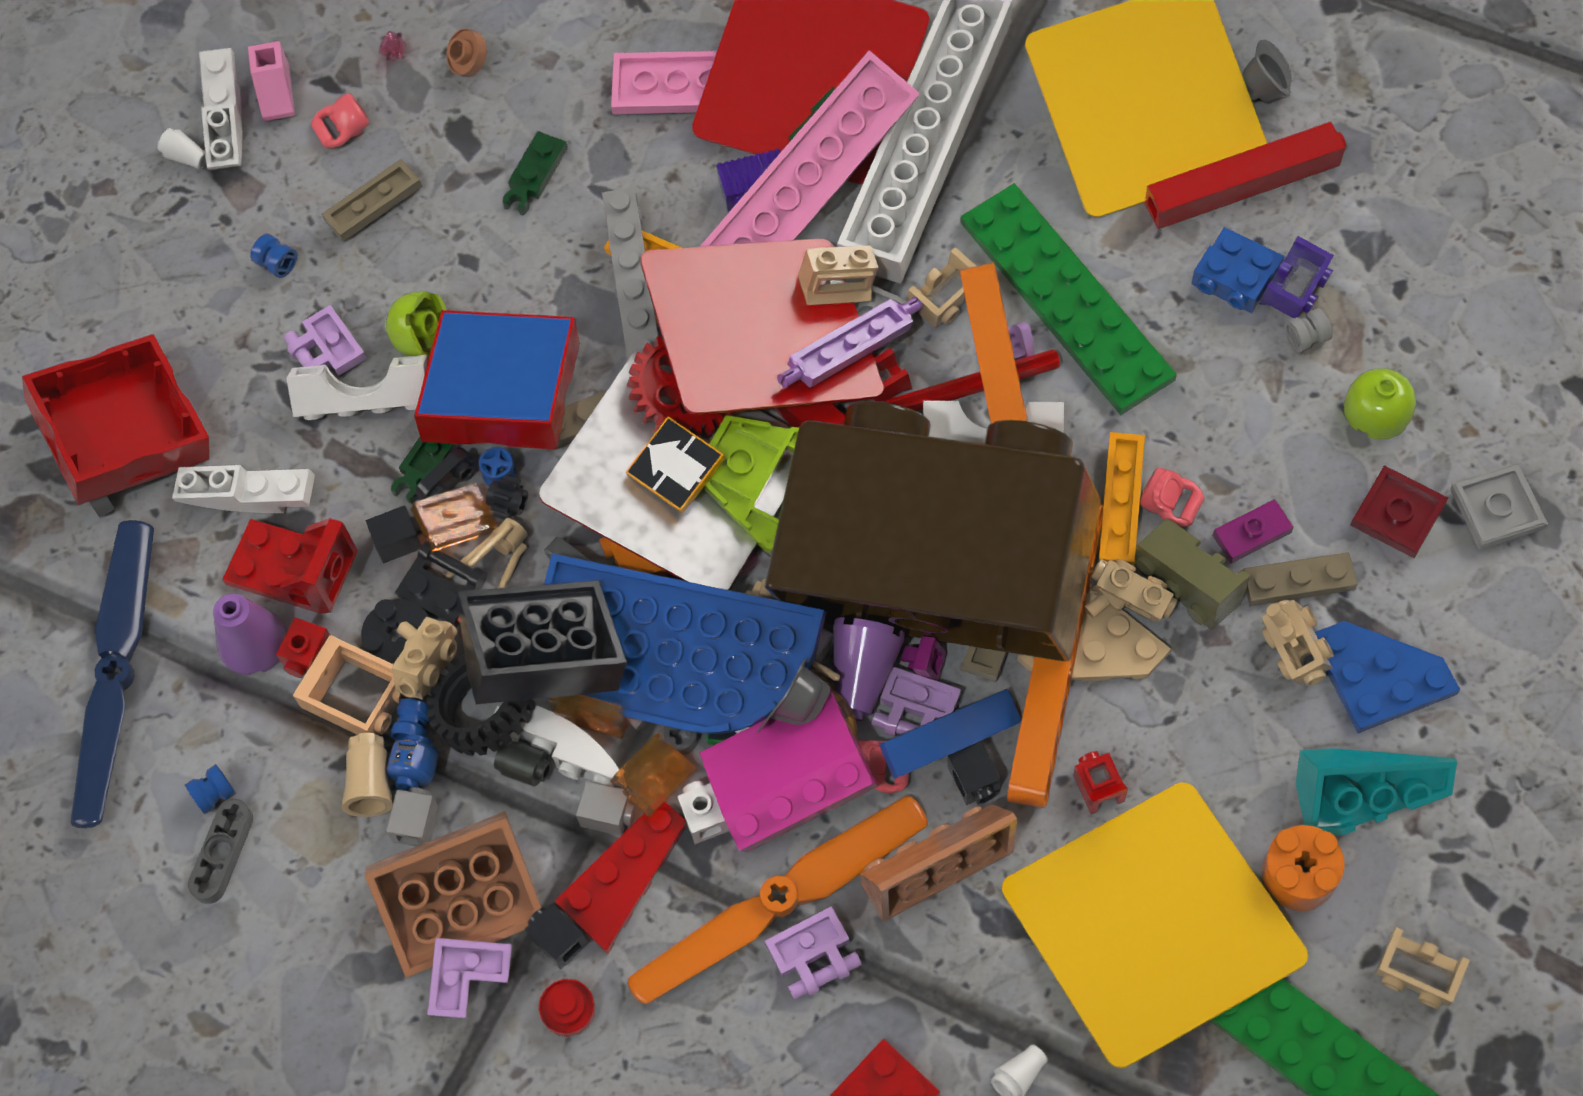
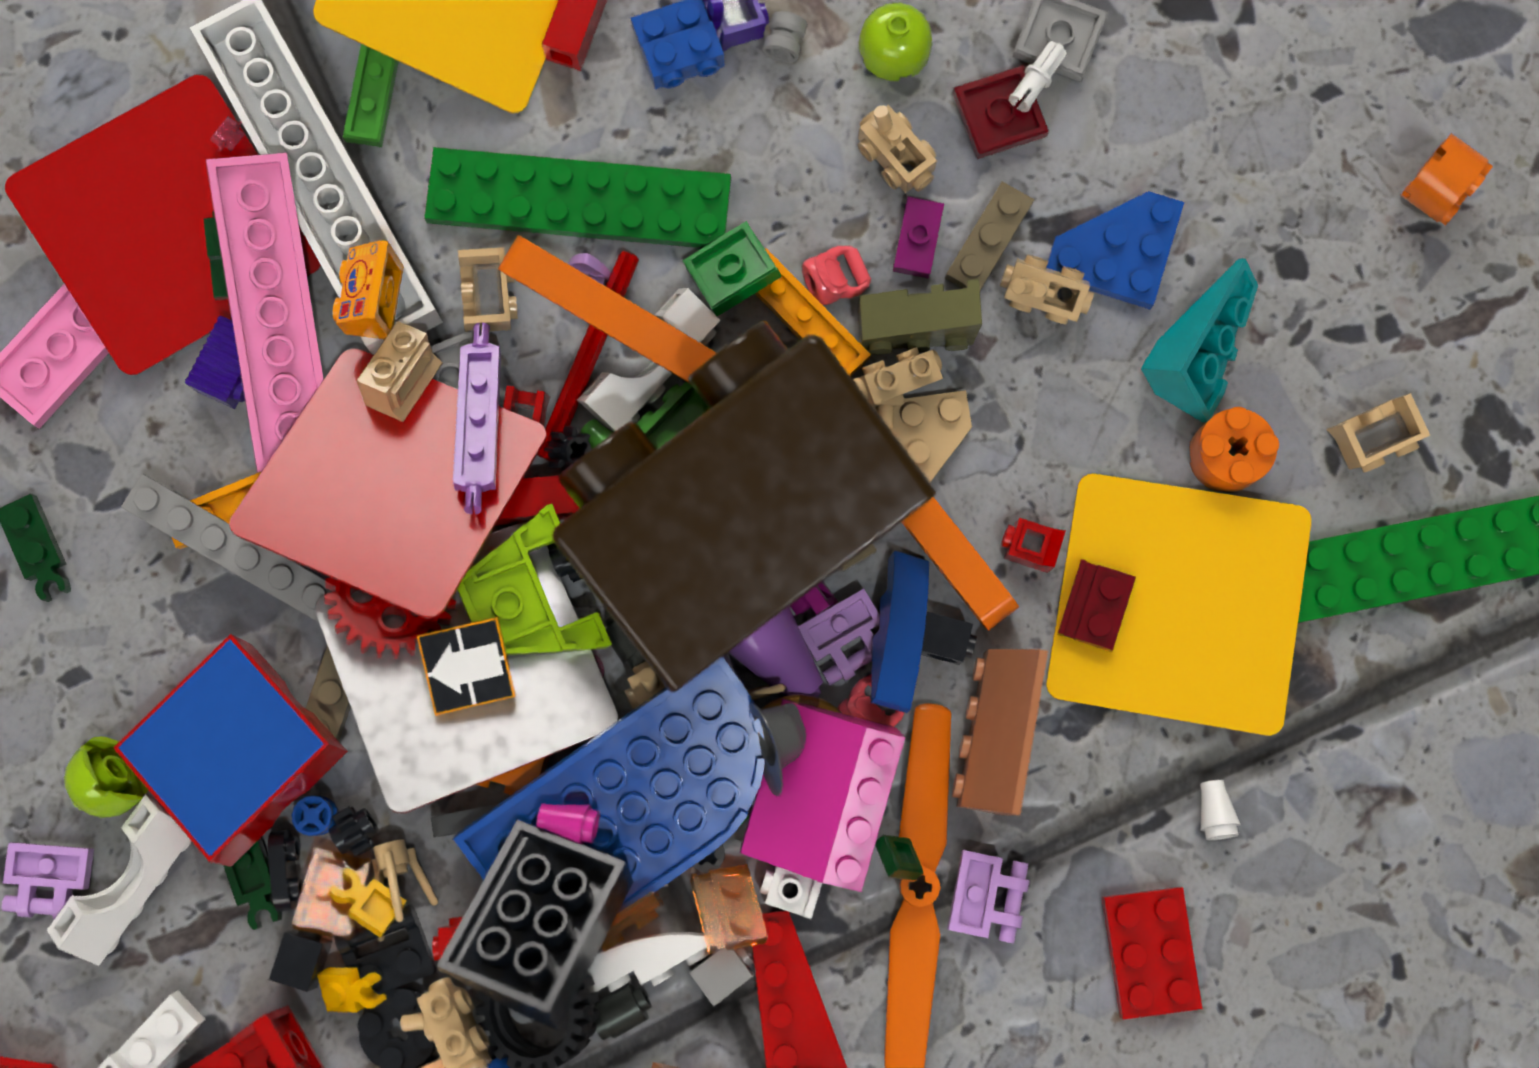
camera: 60 degrees left, 15 degrees up
(397, 576) = (345, 990): none -> yellow plate
(464, 539) = (370, 904): none -> yellow plate
(626, 614) = (571, 822): none -> dark pink cone
(785, 857) = (899, 857): none -> dark green tile
(874, 212) = (369, 290): none -> light orange slope
(902, 57) = (227, 134): none -> clear pink plate
(1011, 123) = (370, 98): none -> bright green tile
(1096, 863) = (1096, 605): none -> dark red plate
(1108, 424) = (731, 268): none -> green tile
(1301, 455) = (893, 144): none -> tan brick
(1447, 510) = (1038, 76): none -> white axle

